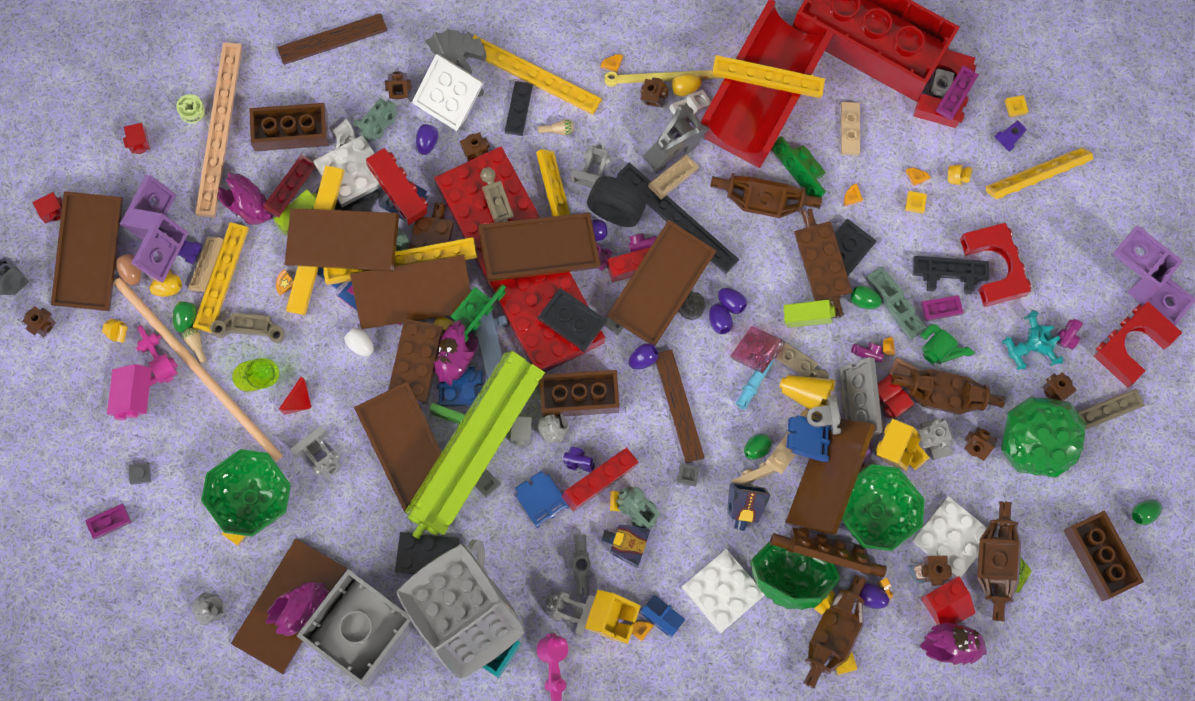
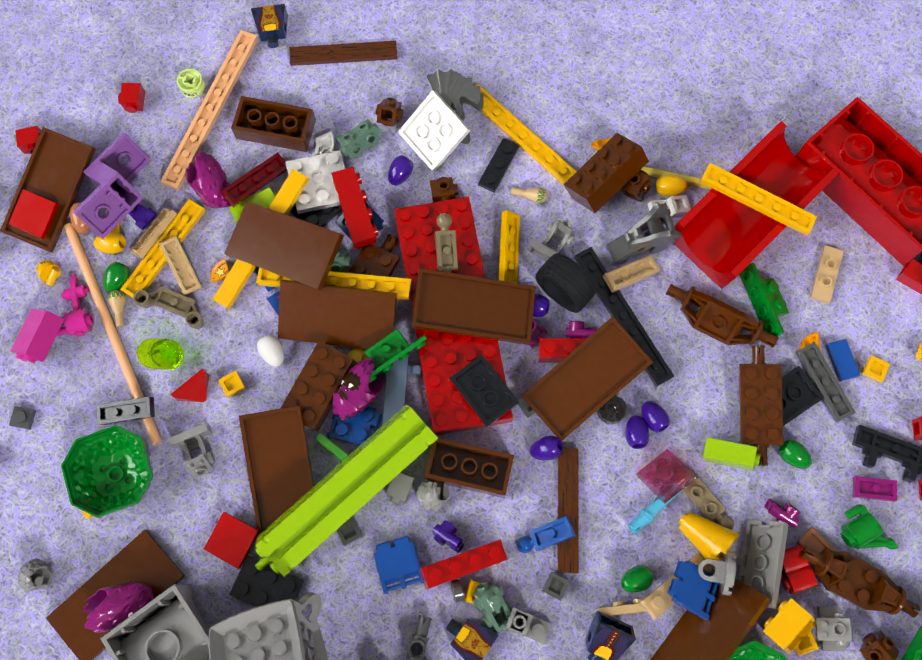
camera: 25 degrees right, 0 degrees up
(82, 278) = (33, 214): none -> red tile
(239, 436) = (125, 410): none -> plate
(244, 288) = (180, 265): none -> tan plate
(250, 28) = (271, 23): none -> torso
(332, 384) = (232, 384): none -> yellow plate
(381, 522) = (231, 540): none -> red tile
(601, 505) = (457, 590): none -> dark grey tile
(623, 89) = (606, 172): none -> reddish brown brick
(667, 433) = (547, 535): none -> blue plate
(673, 516) = (528, 625): none -> light grey slope
(874, 226) = (825, 382): none -> dark grey plate
(885, 202) = (842, 360): none -> blue tile
(888, 346) = (806, 512): light orange tile -> none
(896, 303) = (826, 469): sand green slope -> none
(917, 176) = (884, 342): light orange tile -> none

